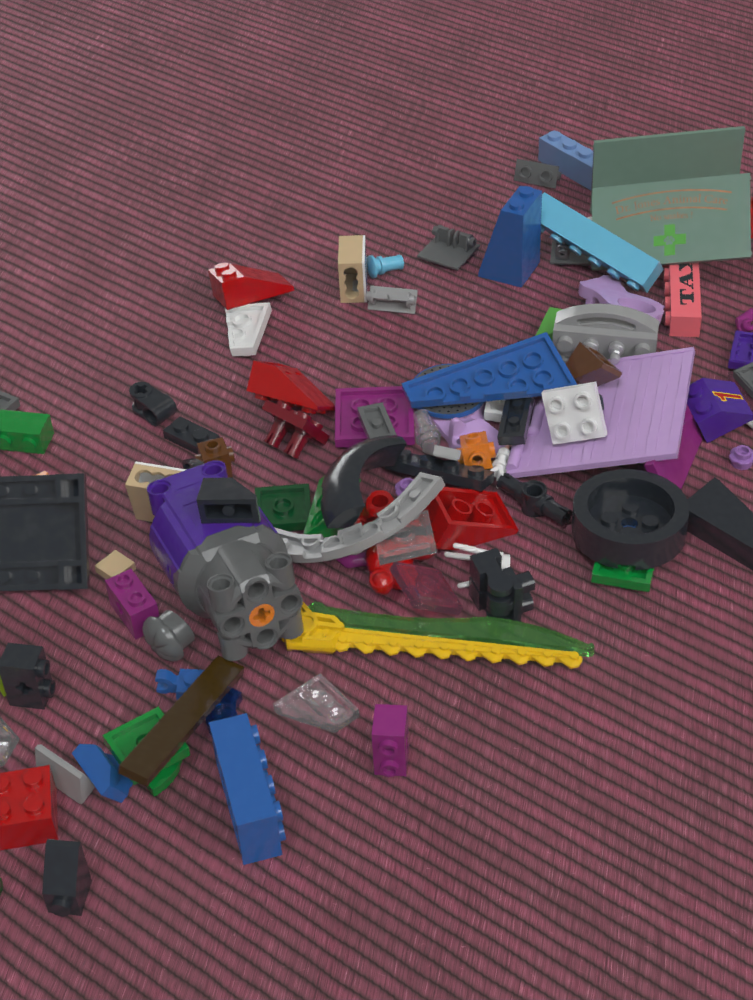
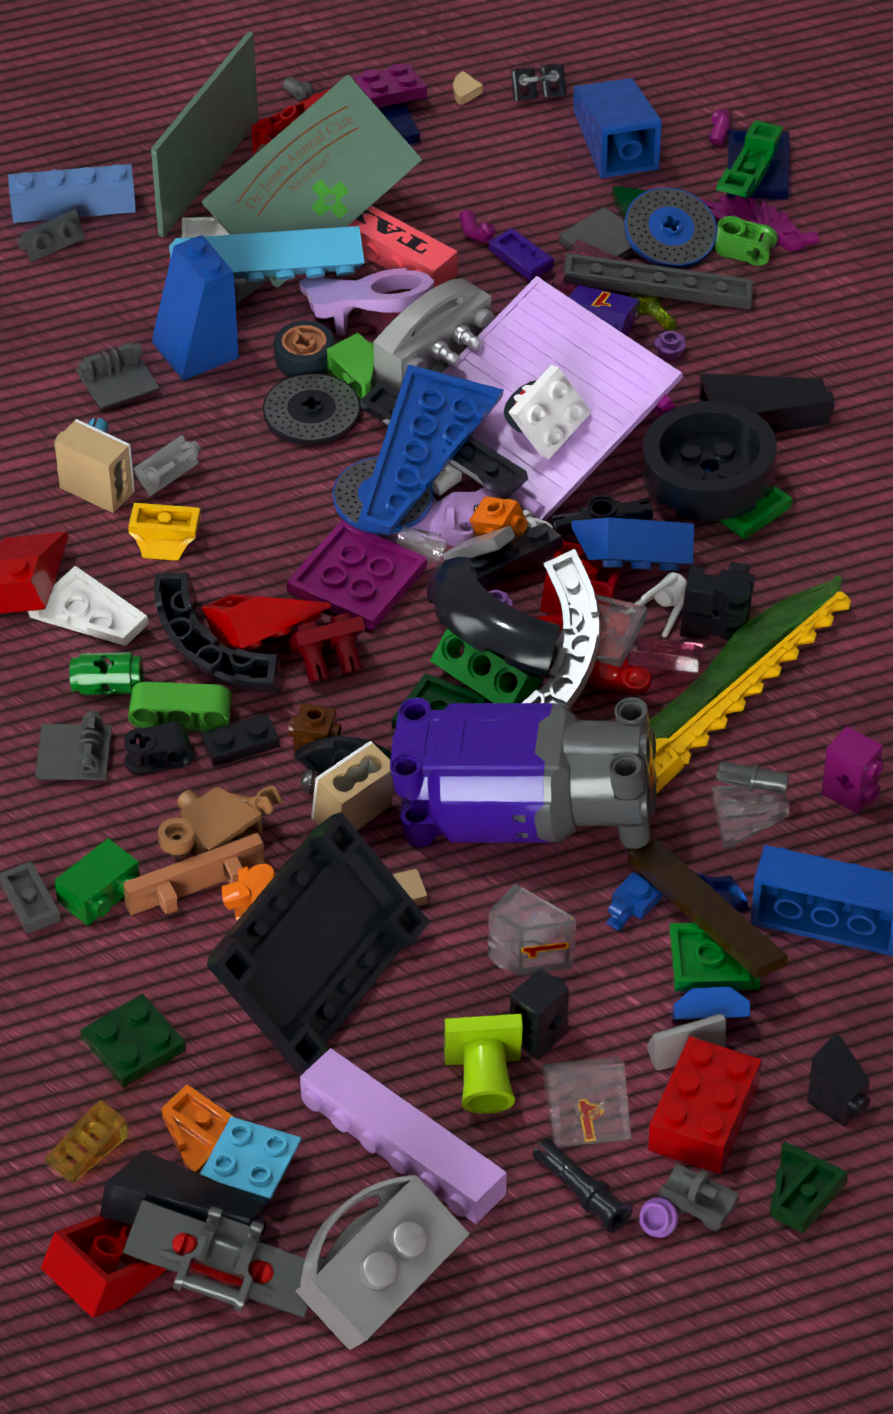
camera: 60 degrees left, 5 degrees up
(37, 459) = (191, 875): none -> nougat hinge
(97, 634) = (530, 934): none -> clear slope
(98, 455) = (215, 820): none -> medium nougat torso
(123, 374) = (74, 750): none -> dark grey hinge
(131, 601) = (481, 886): magenta brick -> none
(168, 635) = (567, 879): dark grey piece -> none
(194, 397) = (194, 705): none -> bright green beam
(195, 356) = (91, 671): none -> green piece
(226, 502) = (509, 709): black slope -> none
(241, 404) = (237, 668): none -> black brick
(336, 322) = (163, 529): none -> yellow slope
(339, 689) = (753, 777): none -> dark grey axle
(375, 420) = (394, 573): dark grey plate -> none
(500, 328) = (289, 415): none -> piece
(511, 520) = (636, 542): none -> blue slope
(547, 296) = (302, 348): none -> black wheel
(591, 366) = (486, 364): reddish brown slope -> none

